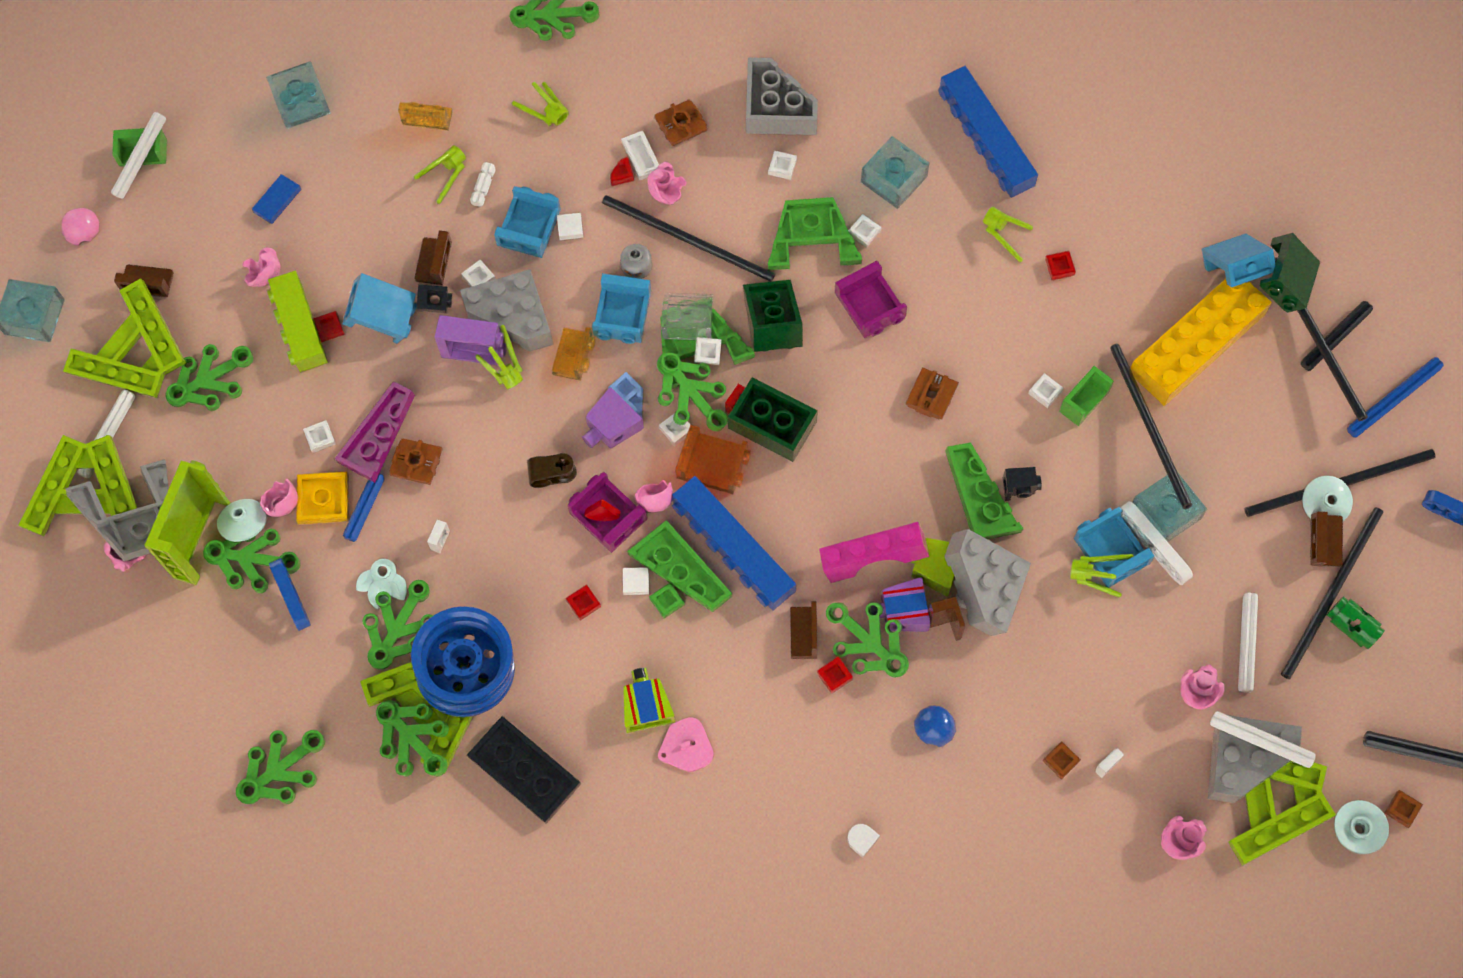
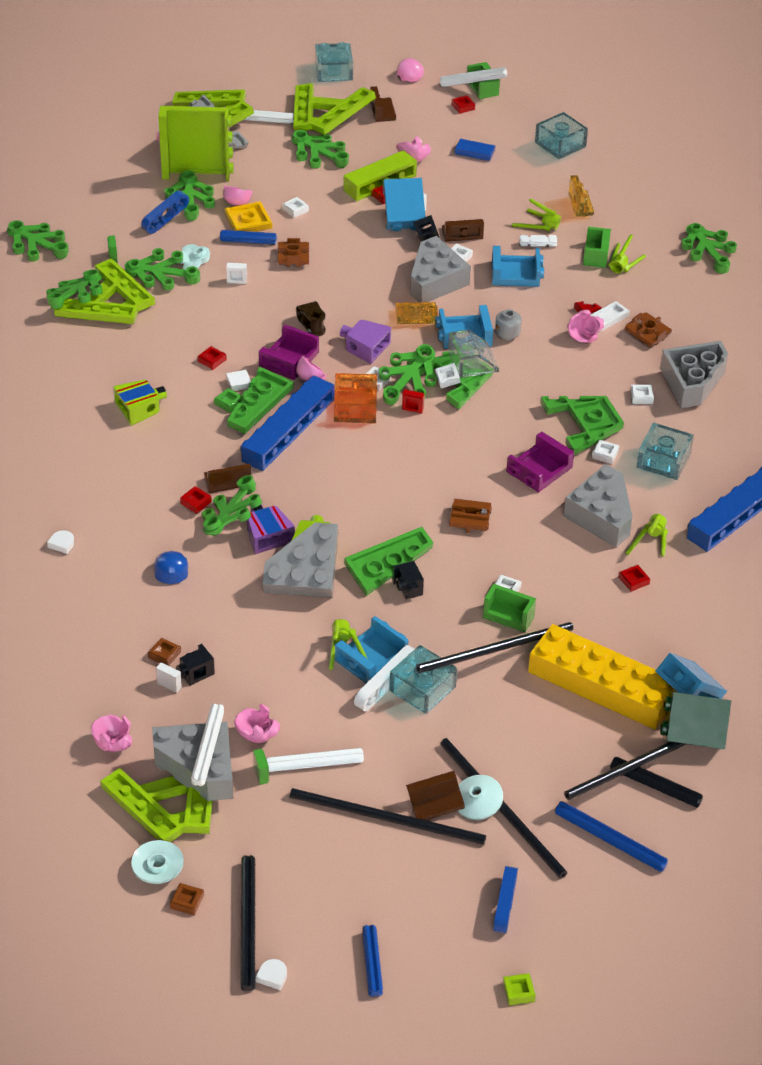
camera: 70 degrees right, 25 degrees down
(174, 184) = (463, 104): none -> red tile
(241, 520) = (214, 183): light aqua dish -> none
(339, 676) = (112, 249): none -> bright green tile
(376, 434) = (307, 228): magenta wing -> none
(451, 627) = (136, 290): blue wheel -> none
(467, 337) = (398, 250): medium lavender window -> none
(508, 374) = (381, 279): lime plant -> none
(521, 126) = (597, 247): none -> bright green panel
(524, 769) = (67, 351): black plate -> none
(570, 226) = (525, 291): white tile -> none
(602, 511) = (288, 347): red tile -> none
(630, 392) = (396, 344): light blue tile -> none
(680, 751) = (113, 434): bright pink piece -> none
(688, 238) = (546, 356): black piece -> none
(772, 419) = (402, 420): dark green brick -> none
(773, 316) = (496, 408): dark green slope -> none
(848, 557) = (315, 498): dark pink arch -> none
(947, 612) = (263, 546): reddish brown panel -> none
(957, 258) = (602, 506): none -> light grey brick
(1097, 731) = (196, 665): none -> black brick
(1253, 697) = (261, 766): none -> bright green tile
(1347, 611) = (359, 830): green piece -> none

